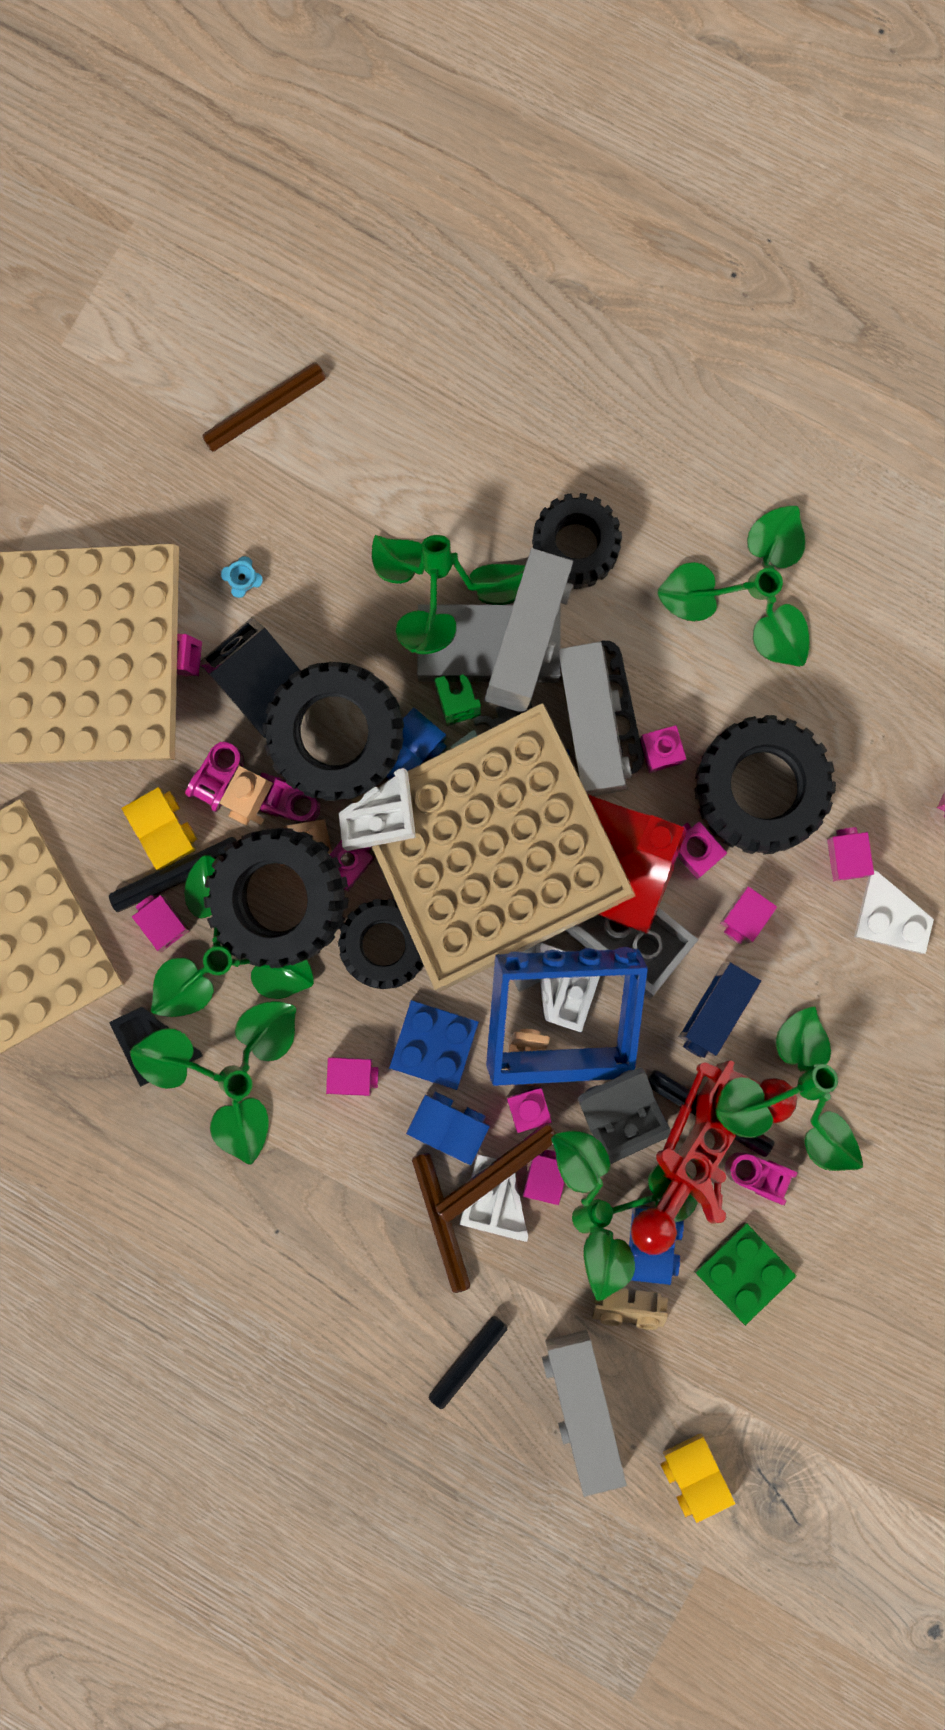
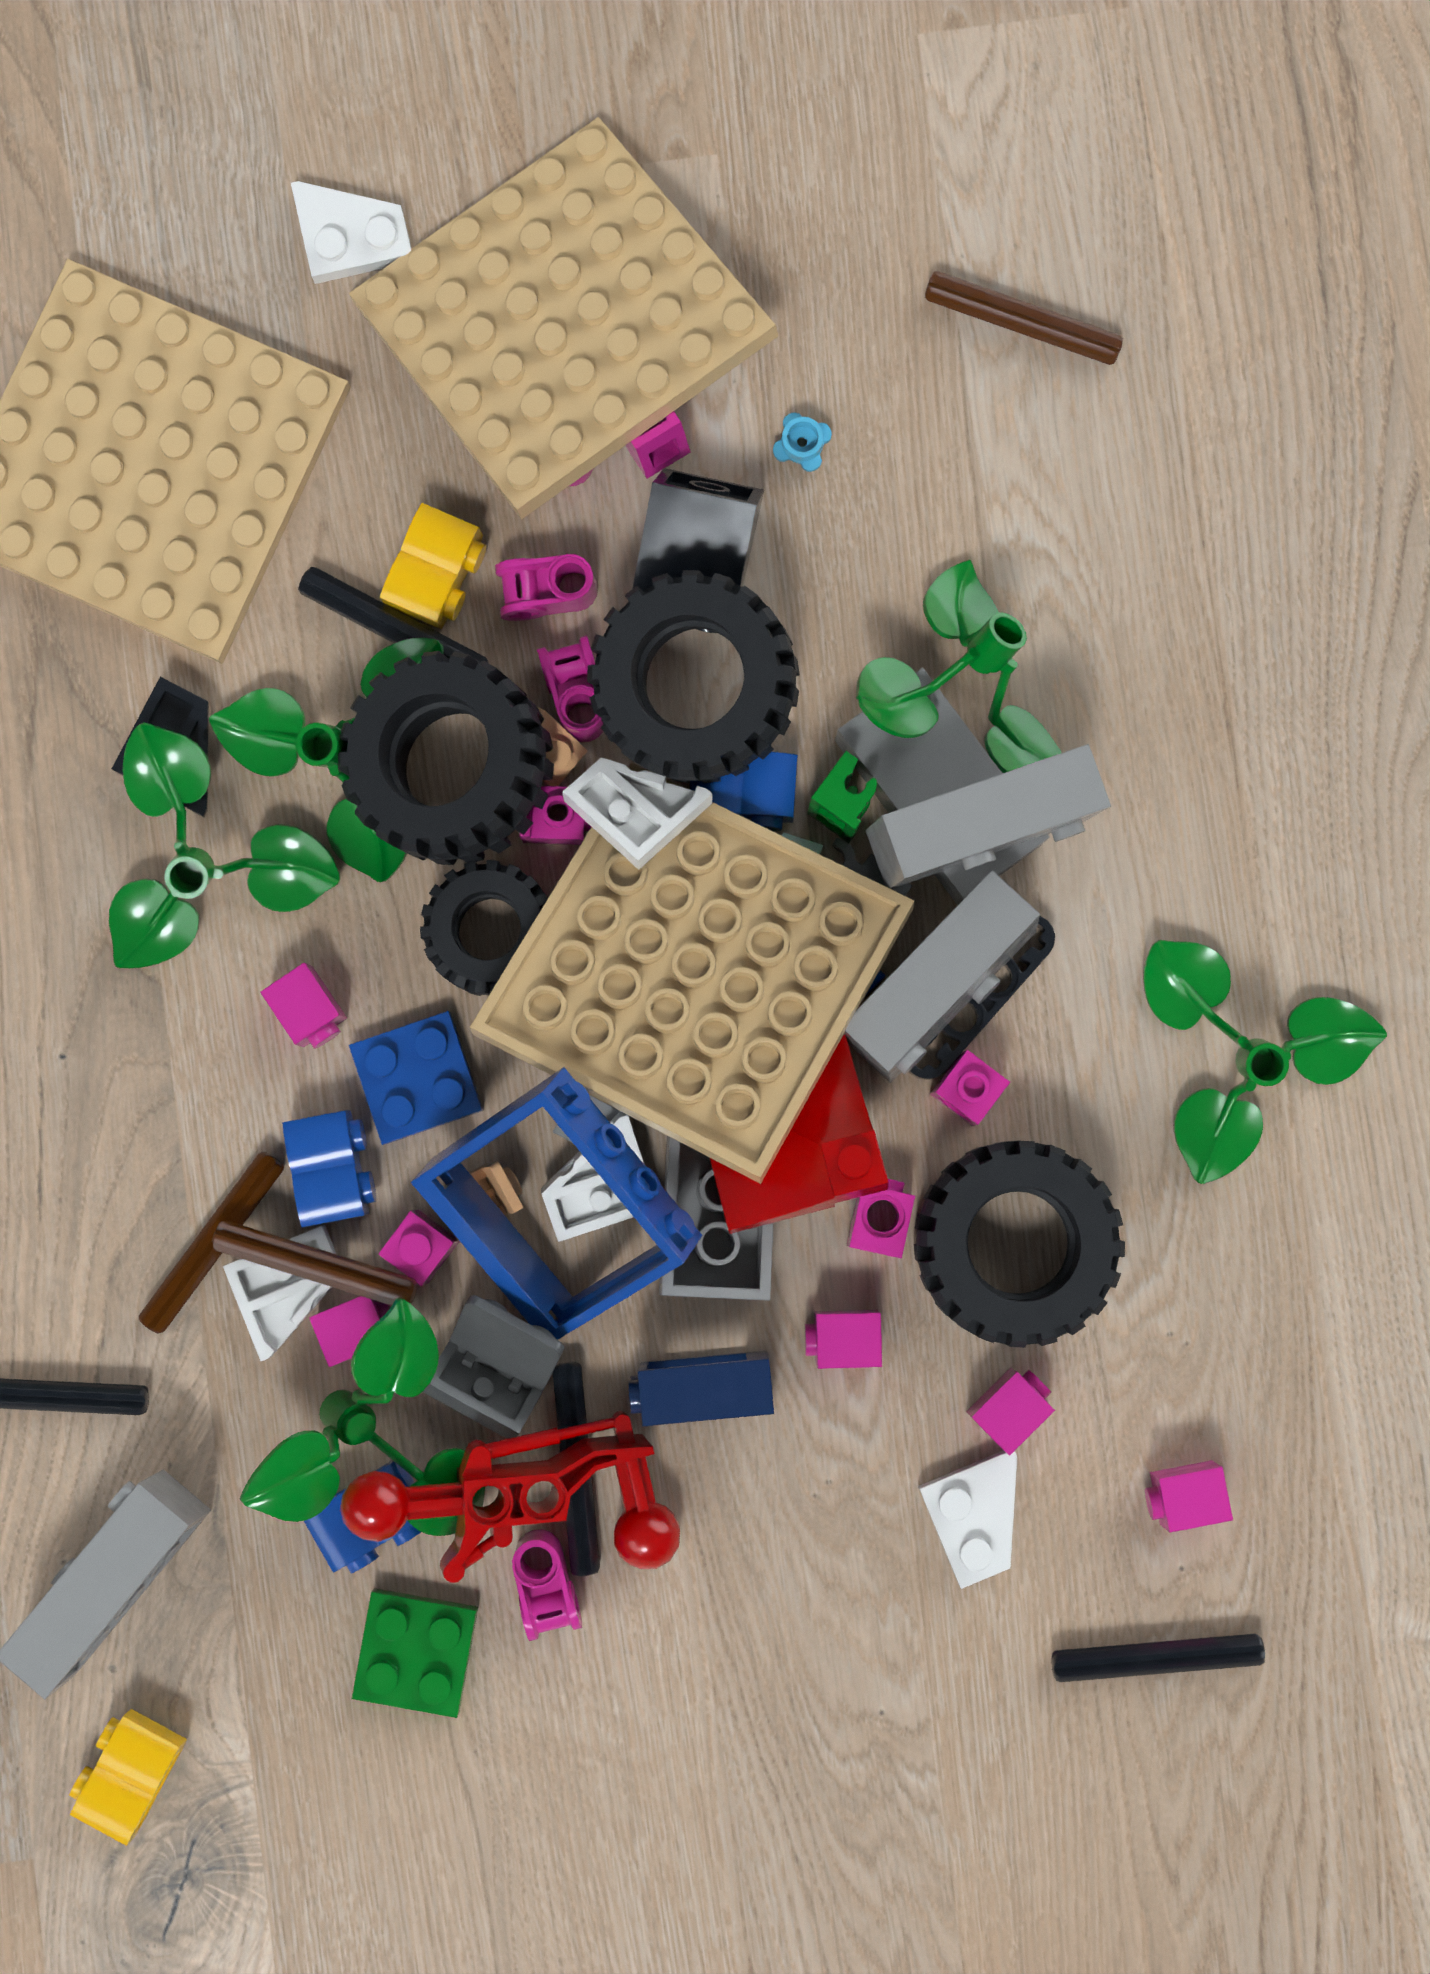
camera: 55 degrees right, 0 degrees up
(159, 922) = (322, 649): dark pink brick -> none
(245, 796) = (543, 637): light nougat bracket -> none
(588, 514) = (1186, 792): black tyre -> none
(643, 1312) = (279, 1562): tan hinge -> none
(745, 1110) = (743, 1523): green plant -> none

